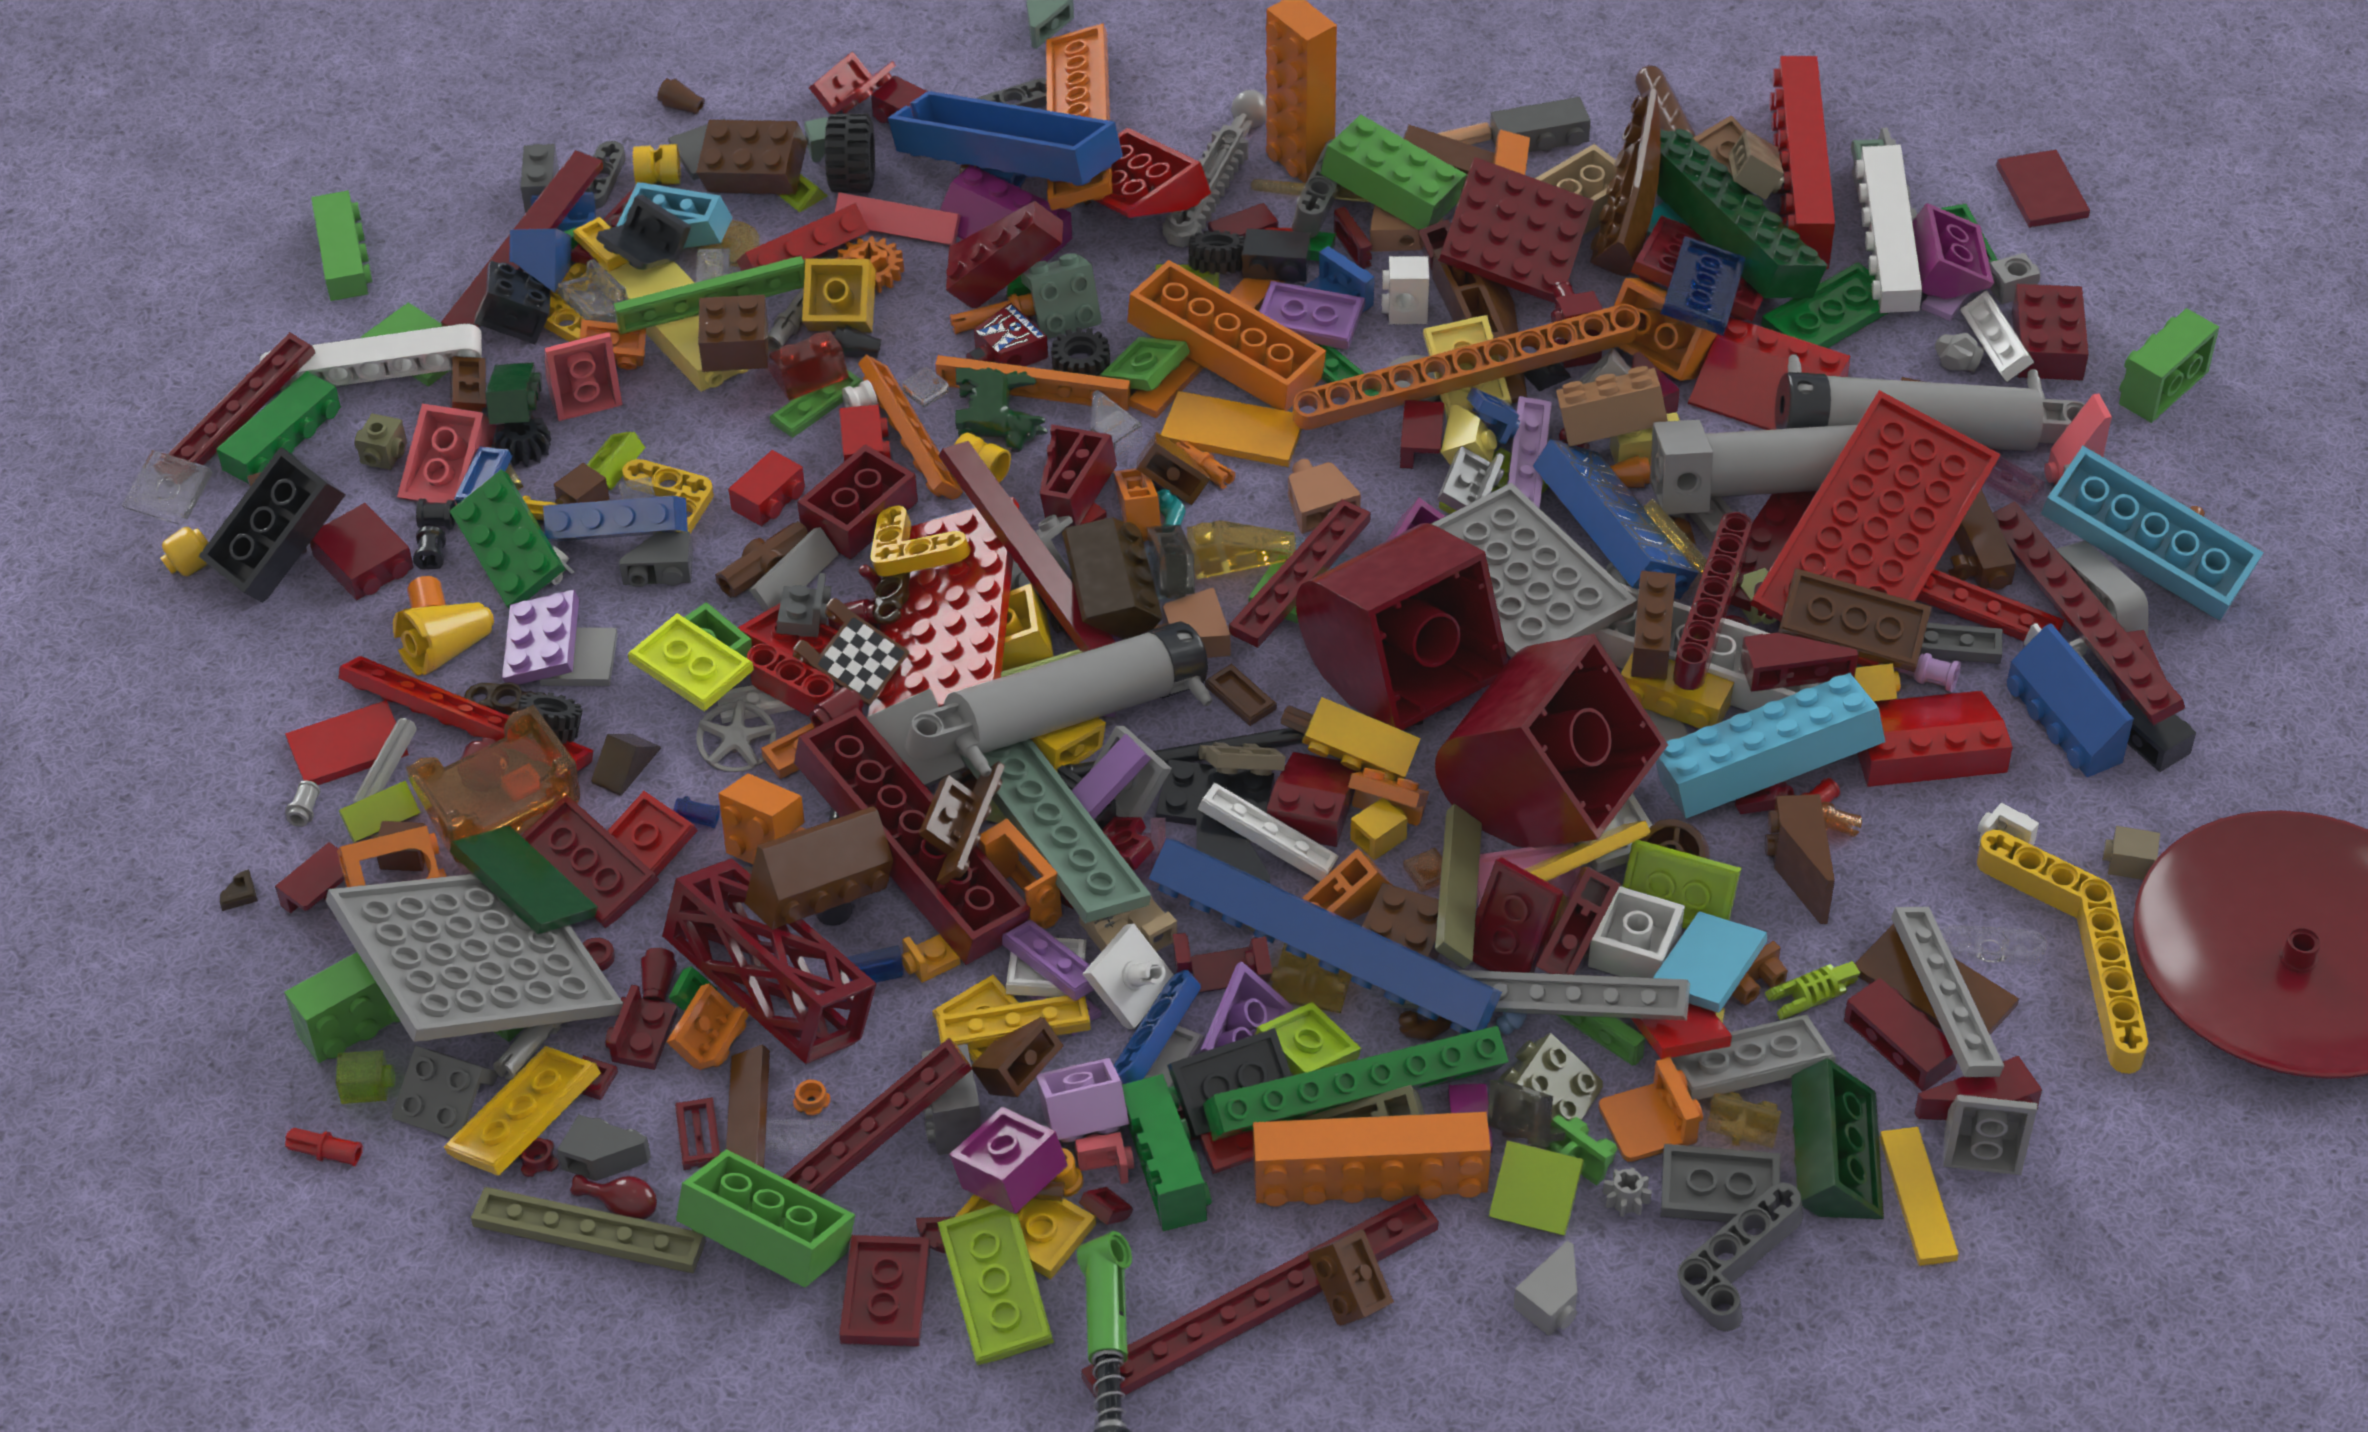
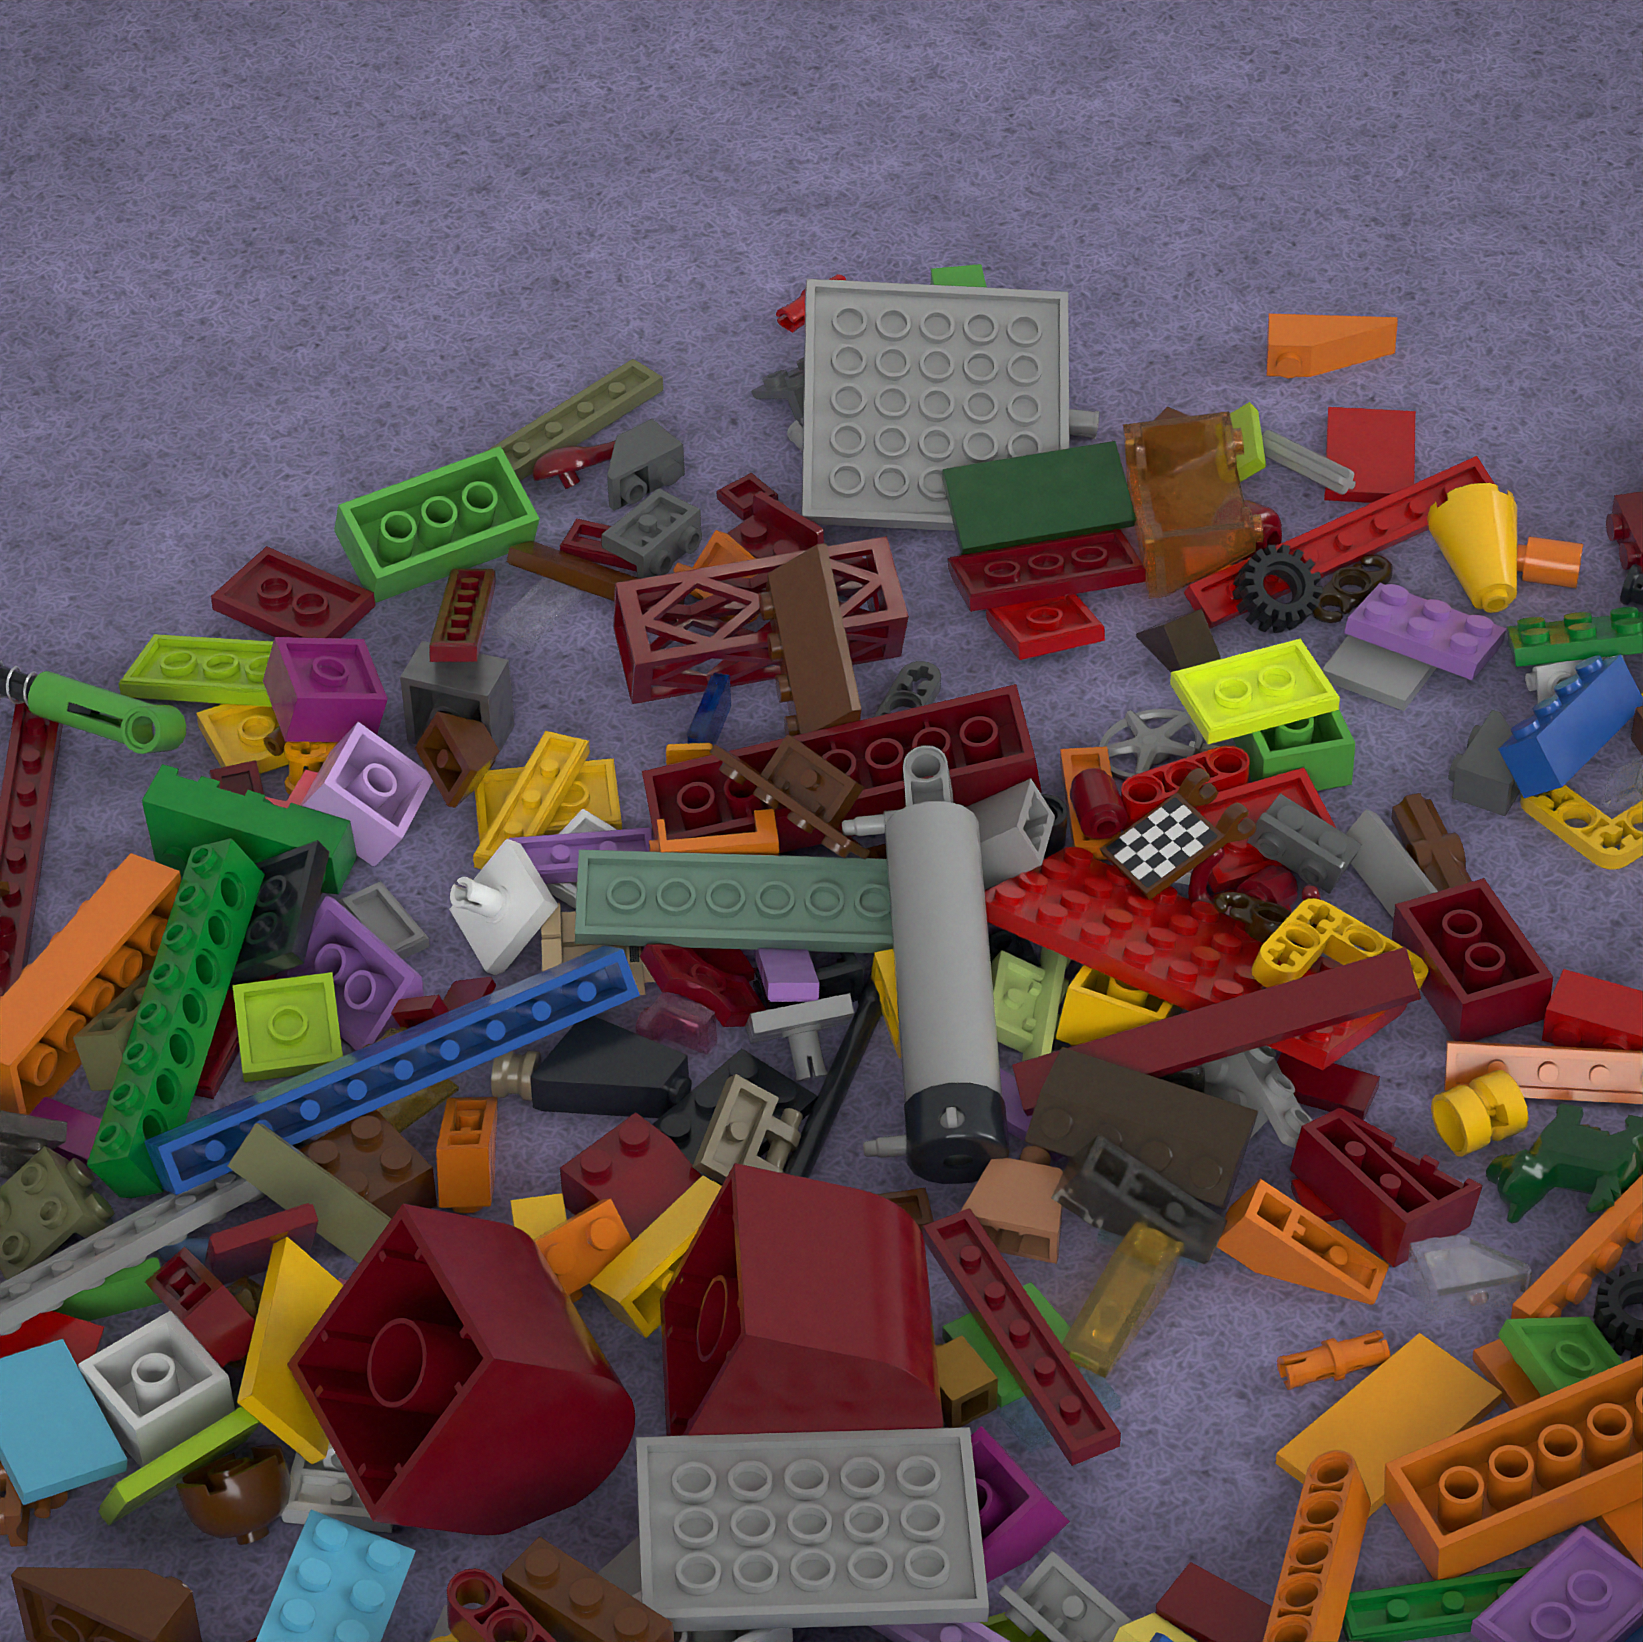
camera: 120 degrees right, 5 degrees down
(234, 811) = (1323, 343): none -> orange slope
(238, 892) = (1207, 335): dark brown tile -> none
(300, 810) = (1297, 399): light grey pin -> none
(311, 880) = (1164, 369): dark red panel -> none
(416, 838) = (1118, 376): orange panel -> none
(522, 1110) = (737, 428): yellow tile -> none
(542, 1148) = (681, 425): dark red plate -> none
(601, 952) = (911, 546): dark red tile -> none
(684, 1092) = (655, 533): none -> dark grey bracket
(697, 812) = (1061, 668): clear blue pin -> none
(757, 813) = (959, 665): orange piece -> none
(767, 488) = (1564, 899): red brick -> none
(811, 1089) = (579, 631): orange plate -> none
(1157, 1027) = (424, 915): blue beam -> none
(1170, 508) = (1263, 1292): teal arm -> none
(1172, 468) = (1335, 1297): reddish brown slope -> none
(1182, 952) = (501, 967): dark red tile -> none
(1268, 832) = (637, 1087): white tile -> none
(1317, 491) = (1176, 1448): nougat torso -> none

